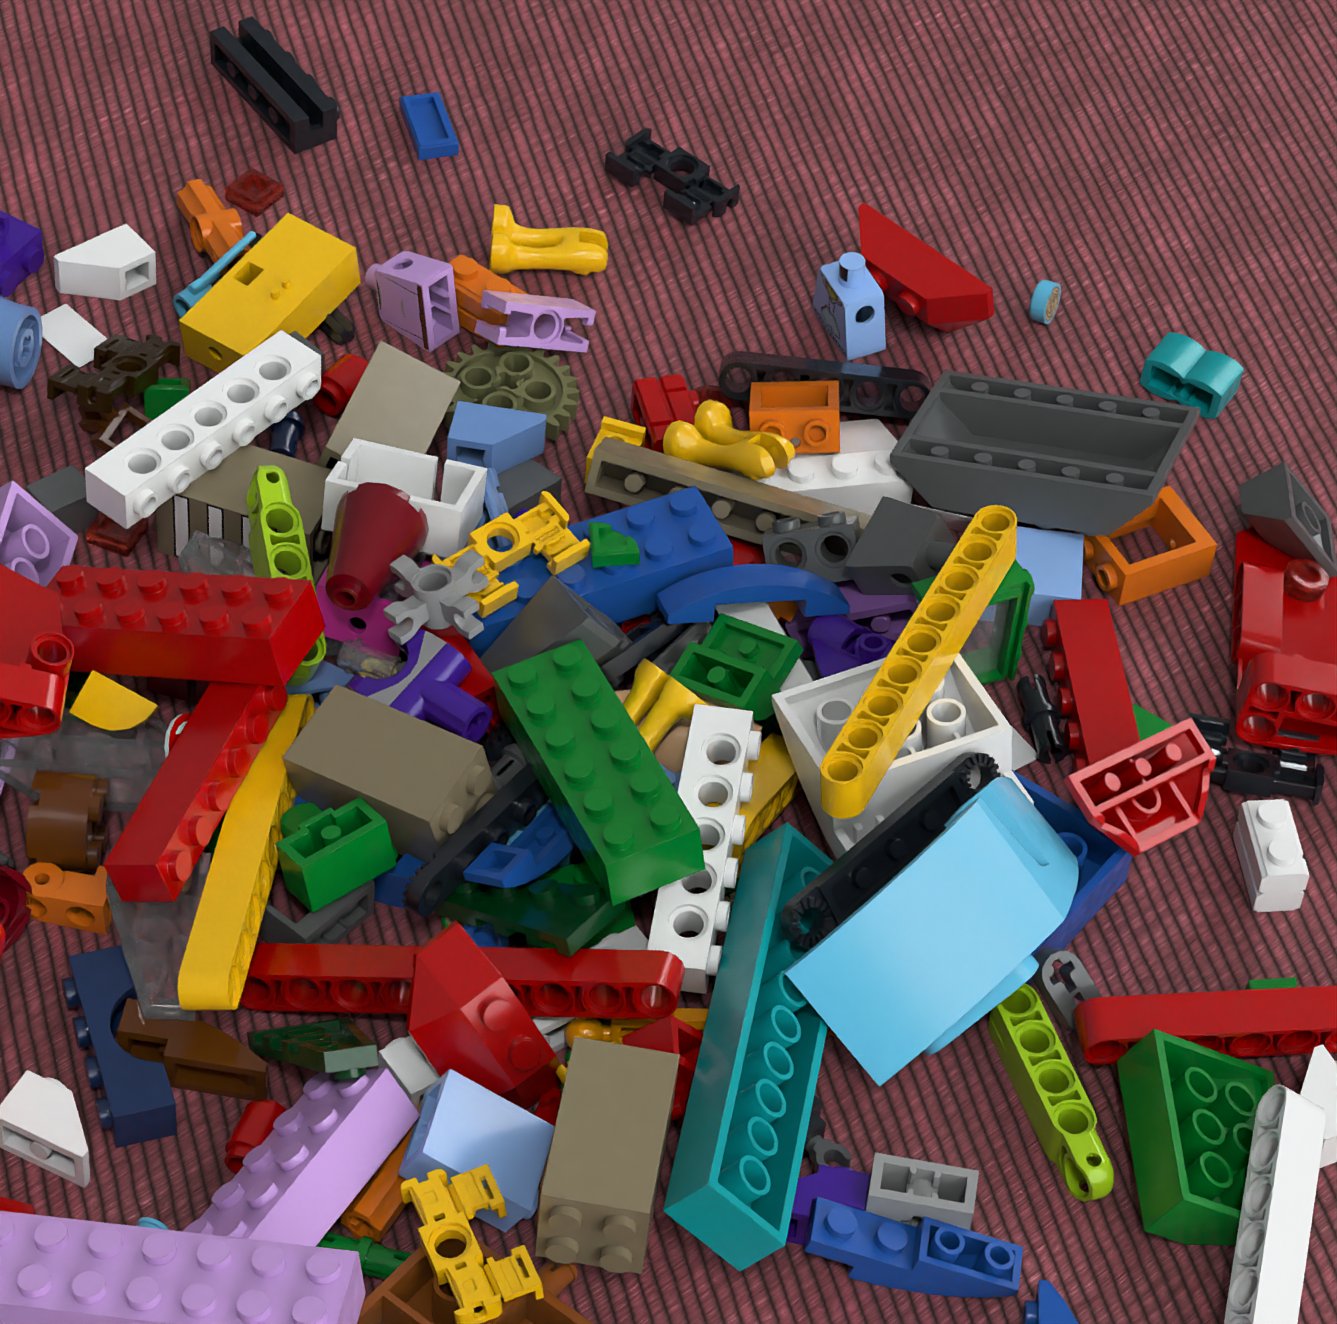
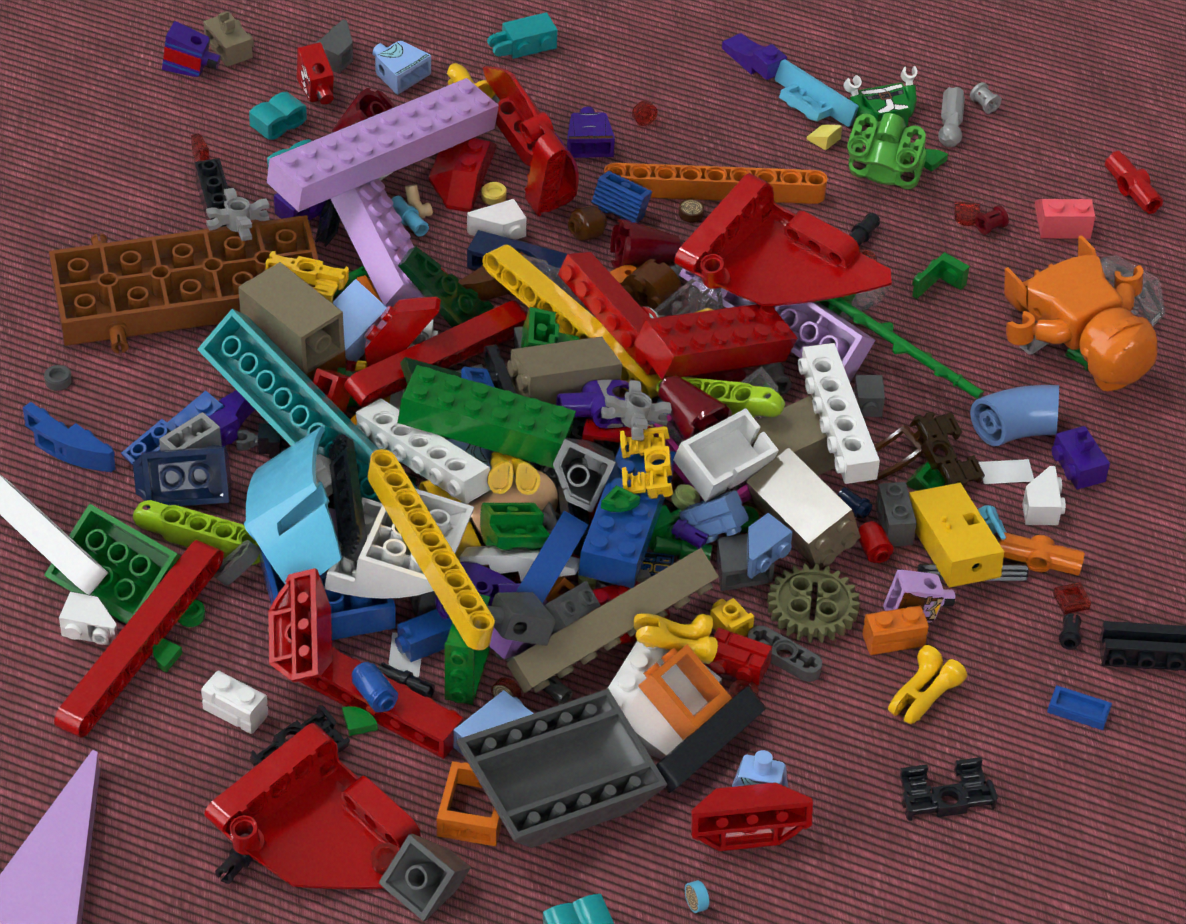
camera: 130 degrees right, 0 degrees up
(319, 166) = (1070, 634): none -> black pin
(535, 321) = (849, 627): lavender piece -> none
(615, 382) = (790, 664): none -> dark grey beam
(959, 1125) = (184, 476): none -> dark blue slope
(1120, 688) = (374, 687): none -> blue head

